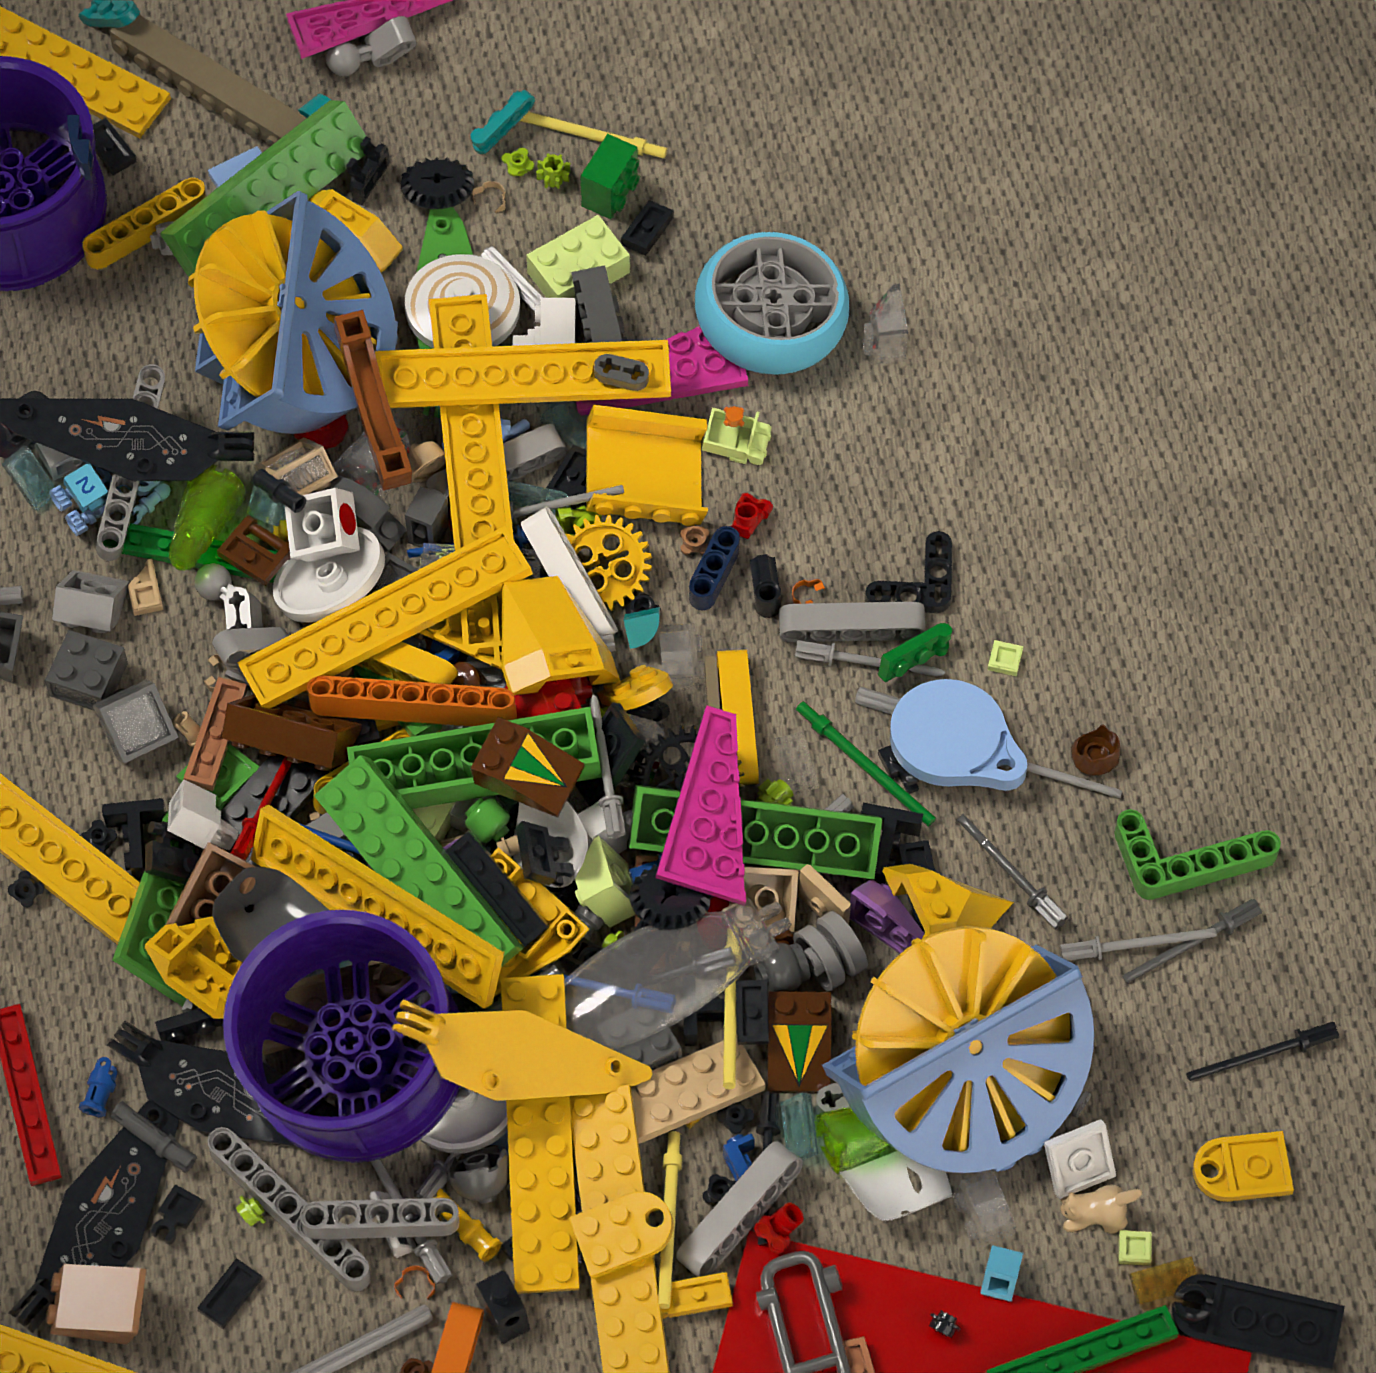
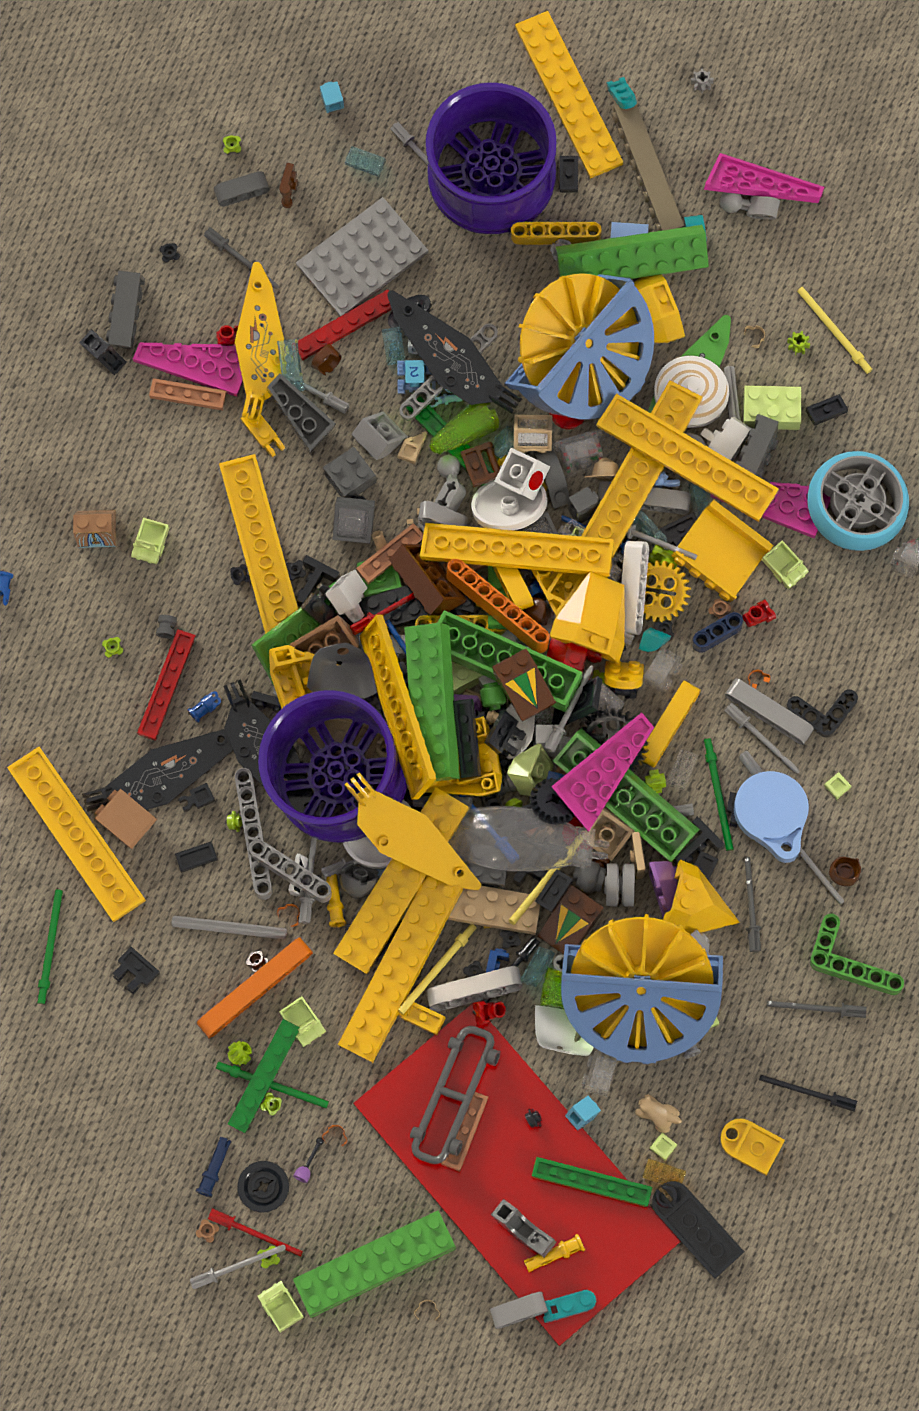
camera: 40 degrees right, 10 degrees up
(81, 147) = (531, 181): dark blue slope -> none
(163, 1144) = (215, 758): dark grey pin -> none
(279, 490) = (510, 441): black pin -> none
(368, 389) = (592, 423): dark orange arch -> none
(374, 166) = (702, 278): black plate -> none
(454, 186) = (735, 319): black gear -> none
(500, 1304) = (321, 956): black torso -> none
(502, 121) = (791, 295): teal plate -> none
(521, 168) = (779, 328): lime plate -> none
(610, 177) = (824, 367): green brick -> none
(619, 1232) = (402, 960): yellow plate -> none
(621, 372) = (735, 495): dark grey beam -> none
(711, 682) = (664, 702): dark tan tile -> none
(734, 416) = (789, 553): orange piece -> none
(765, 585) = (738, 659): black piece -> none
(915, 651) = (789, 751): green plate -> none
(1080, 1159) = (666, 1082): white tile -> none
(1094, 948) = (762, 976): light grey piece -> none

